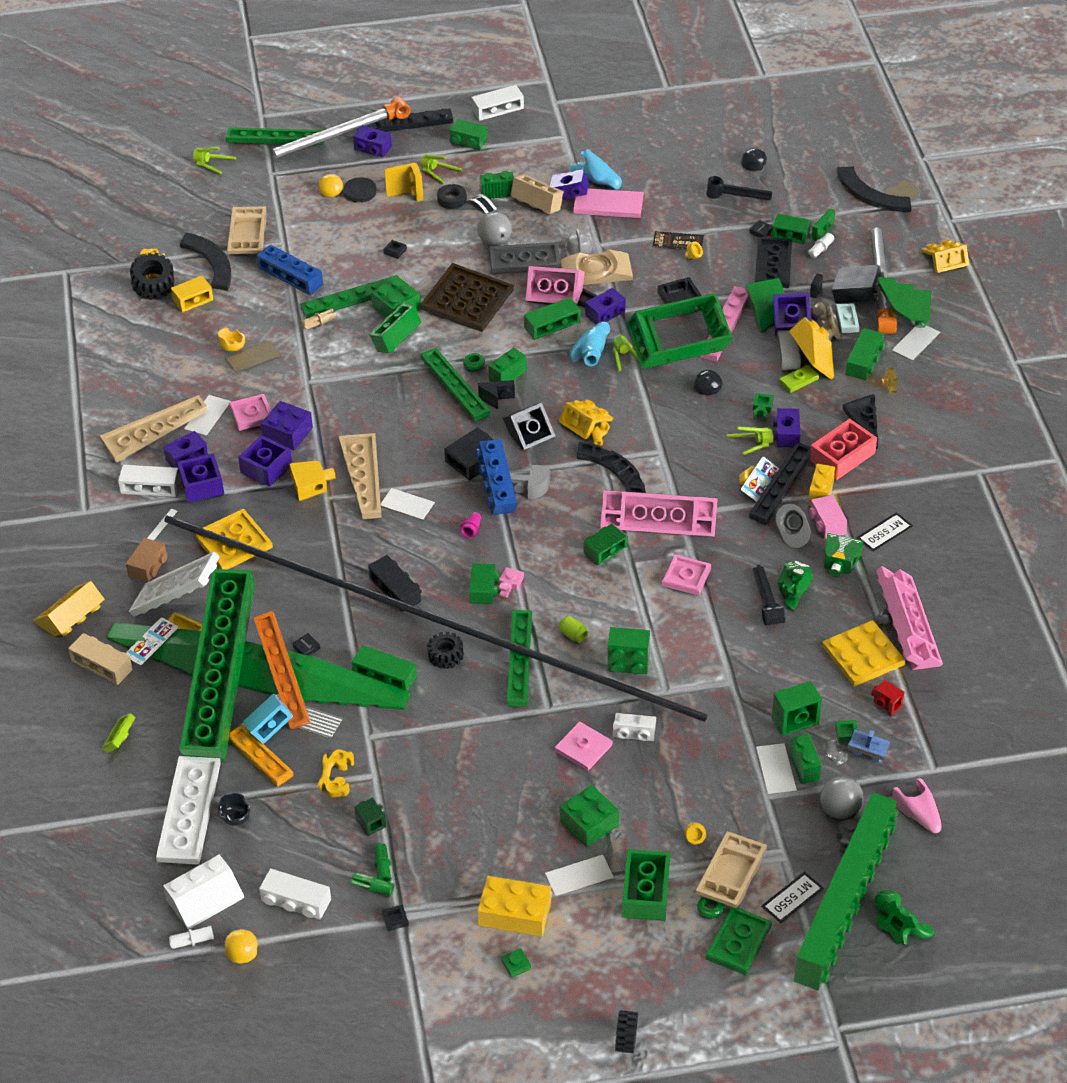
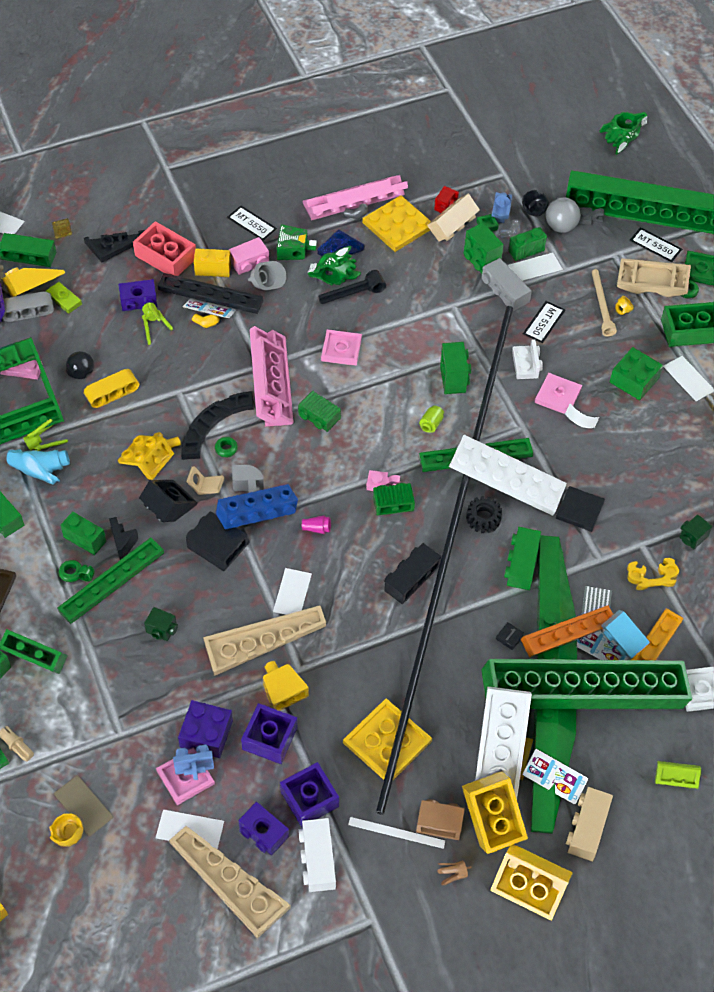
camera: 105 degrees left, 10 degrees up
(98, 565) = (458, 868): none -> medium nougat piece
(129, 582) = (494, 812): none -> yellow brick
(247, 407) = (193, 763): none -> medium blue hips
(398, 409) = (160, 624): none -> dark green brick
(431, 731) = (580, 508): none -> black tile
(467, 369) = (88, 573): none -> green hinge
(482, 672) = (508, 475): none -> white plate
(541, 455) = (205, 485): none -> tan bracket
(548, 758) = (581, 419): none -> white sticker
(582, 480) = (226, 452): none -> green piece
(667, 811) = (608, 327): none -> tan piece
(671, 400) = (111, 388): none -> yellow beam
(691, 759) = (544, 321): none -> sticker
(746, 727) = (506, 284): none -> light grey brick
(762, 405) = (106, 318): green plate -> none
(832, 593) = (338, 241): none -> clear blue wing
(855, 696) = (453, 218): none -> tan brick
(870, 778) = (535, 203): none -> black hair
(900, 920) = (659, 174): green animal -> none
(920, 808) = (550, 173): bright pink animal -> none
(986, 899) = (623, 132): none -> green piece

